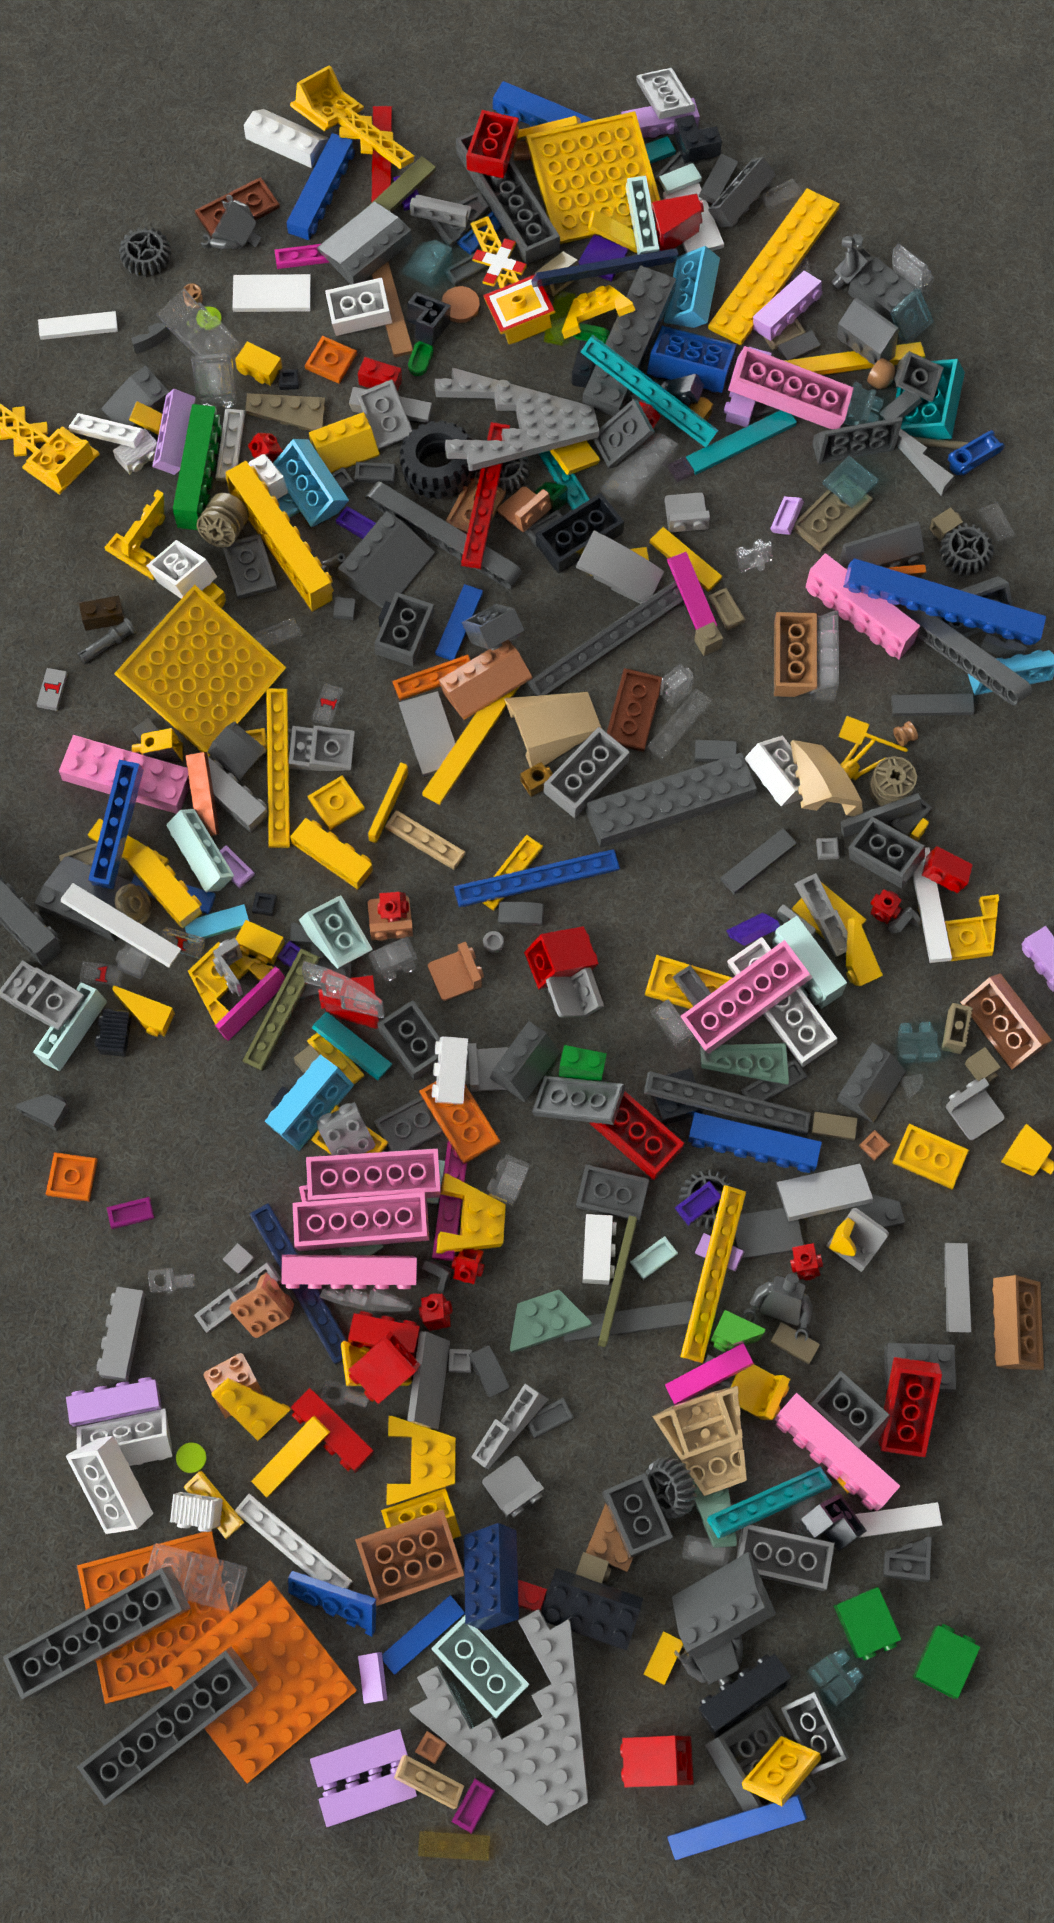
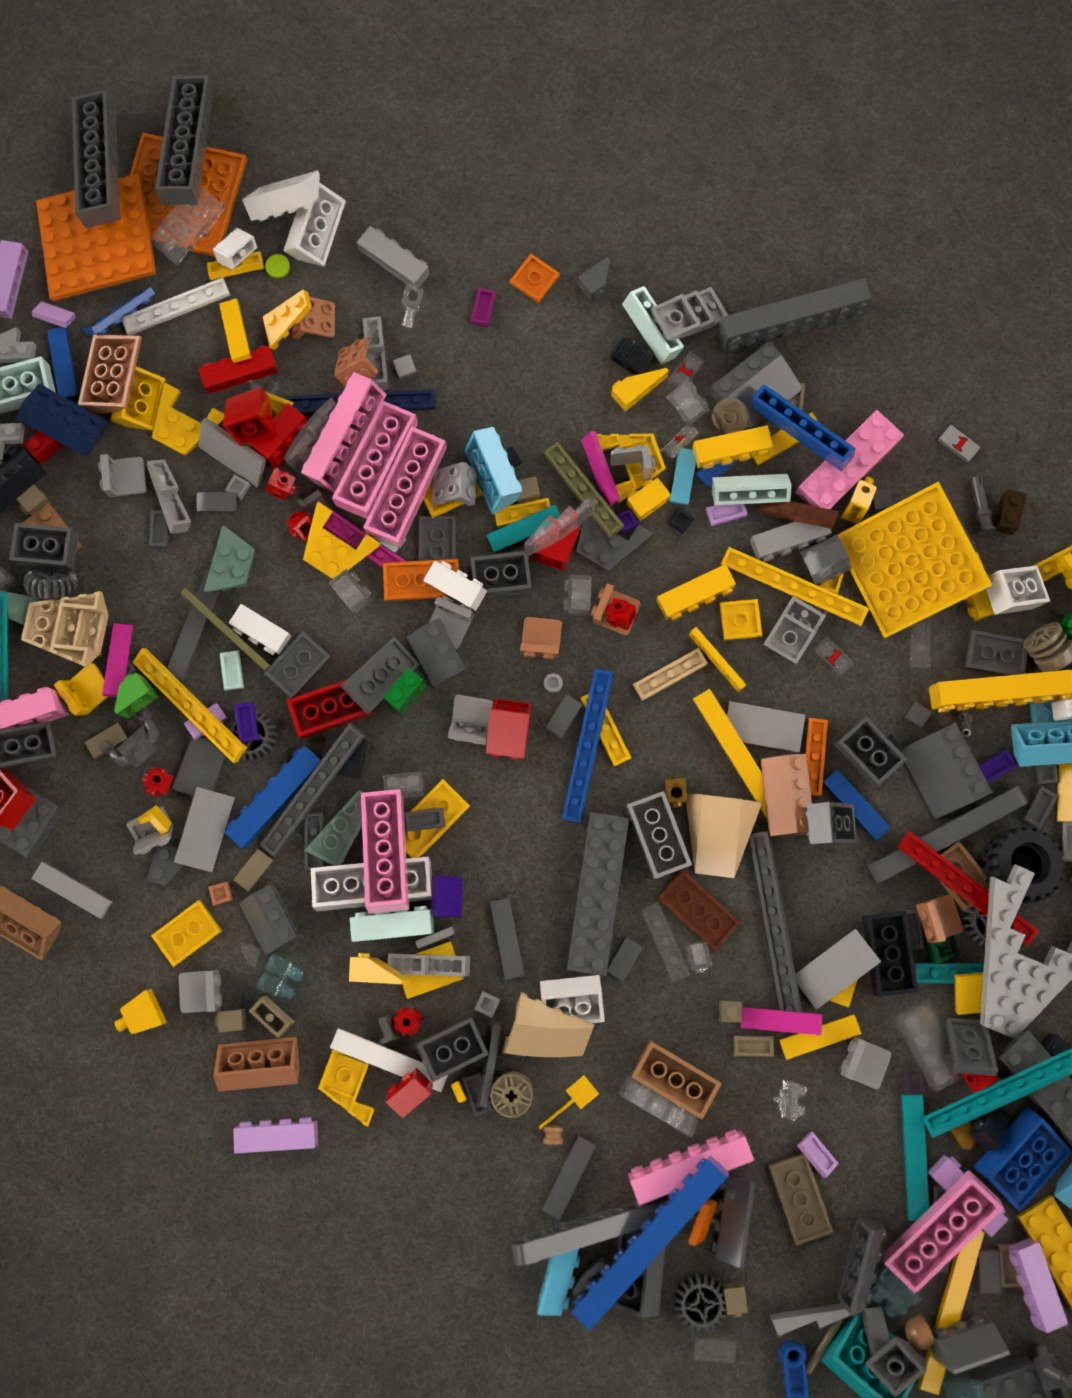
camera: 125 degrees right, 10 degrees up
(113, 1402) = (346, 230): lavender brick -> none
(120, 925) = (714, 393): white tile -> none
(335, 932) = (622, 559): light aqua slope -> none
(850, 481) = (822, 1234): clear light blue tile -> none
(851, 766) = (547, 1066): yellow plant -> none

